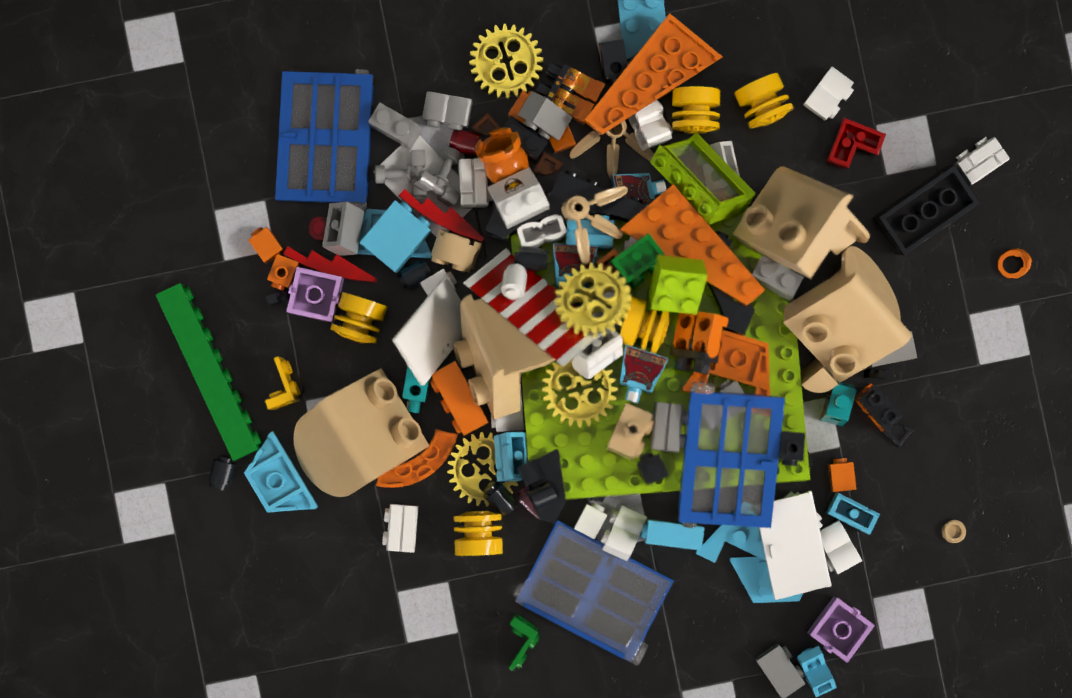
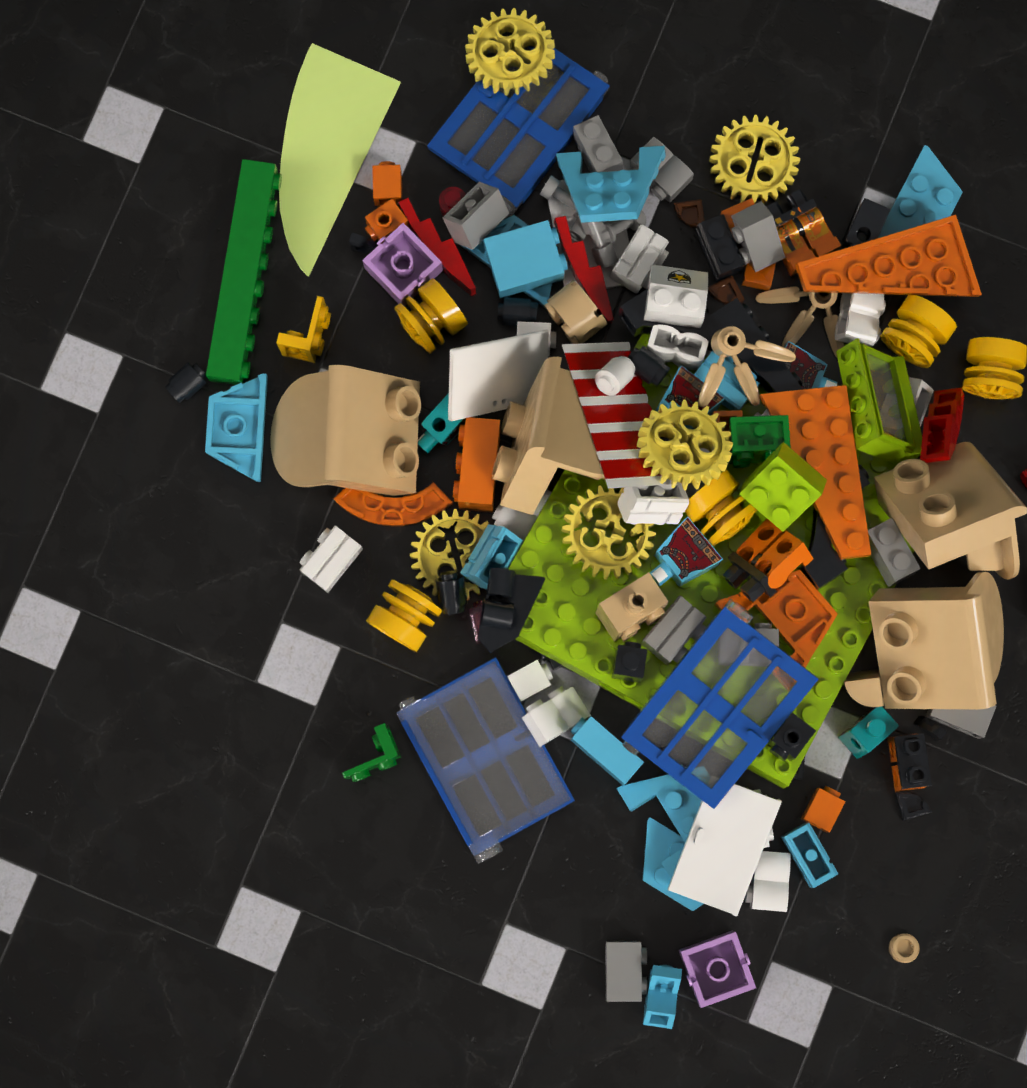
camera: 35 degrees right, 5 degrees down
(202, 239) = (325, 142): none -> yellowish green sticker
(286, 117) = (495, 69): none -> light yellow gear
(426, 153) = (613, 193): none -> medium azure wing
(464, 141) = (660, 215): dark red brick -> none
(502, 154) = (688, 244): orange tile -> none
(754, 166) = (942, 425): none -> red slope

